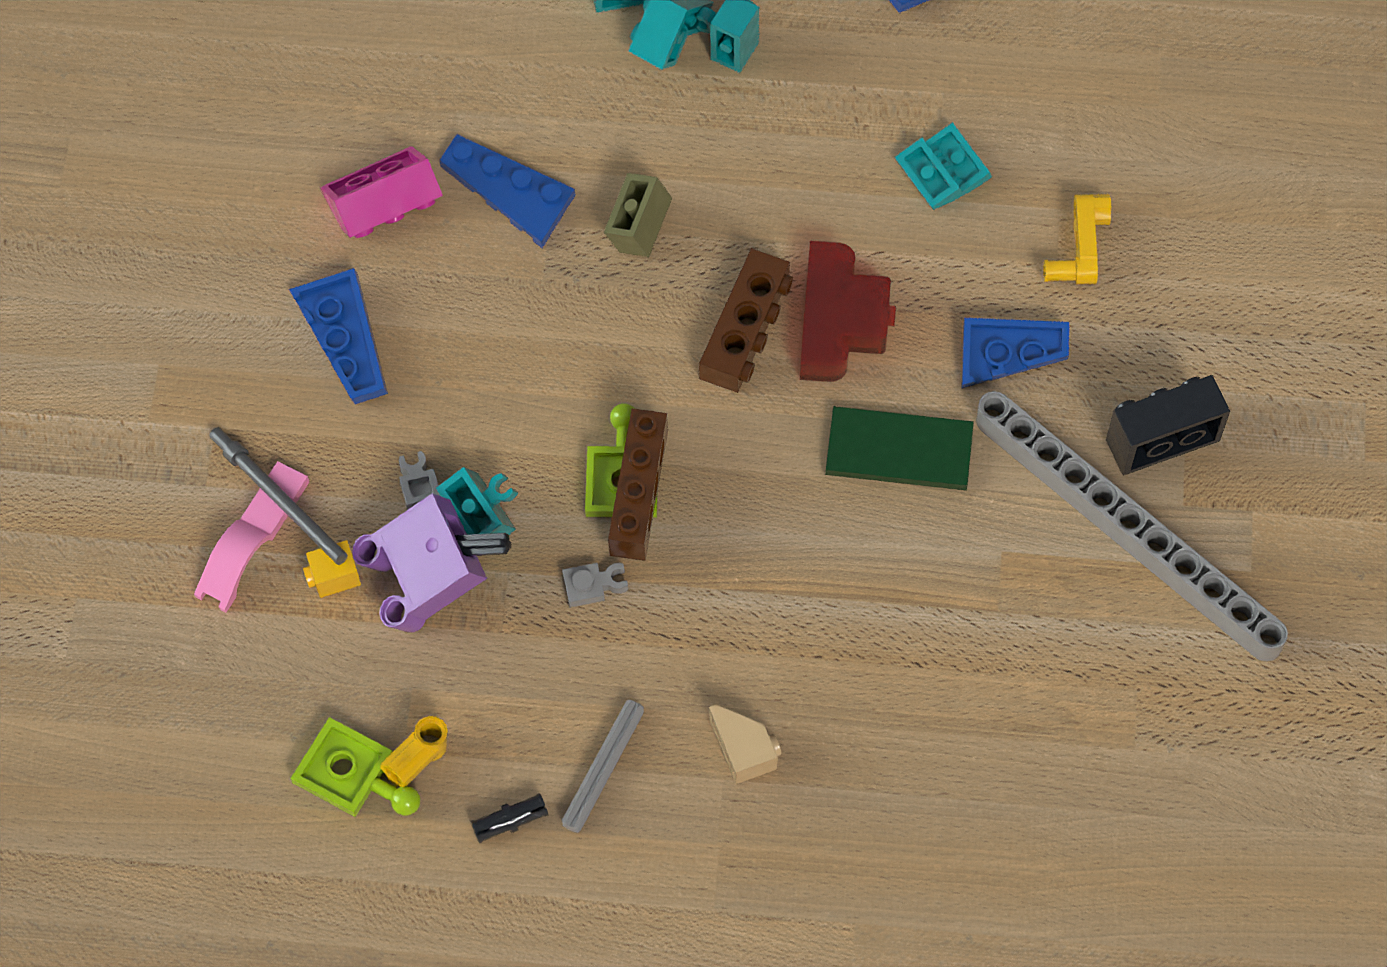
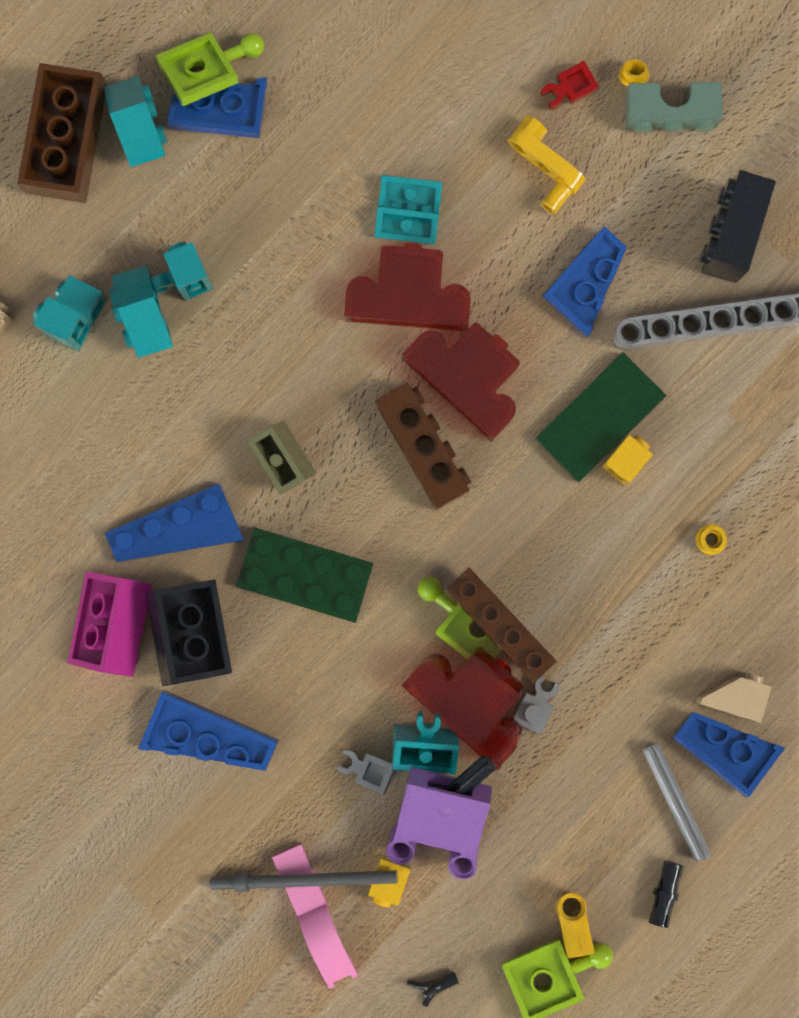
camera: 55 degrees left, 20 degrees up
(265, 682) = (434, 987): none -> black bar
(423, 248) = (188, 632): none -> black brick
(551, 518) = (471, 700): none -> clear red brick
(552, 314) = (305, 575): none -> dark green plate
(686, 775) = (731, 754): none -> blue wing
(869, 212) = (408, 293): none -> clear red brick
(874, 610) = (718, 532): none -> yellow plate
(881, 493) = (628, 459): none -> yellow brick
(1171, 214) = (573, 83): none -> red plate
(1226, 253) = (633, 72): none -> yellow plate
(1243, 326) = (648, 111): none -> sand green arch

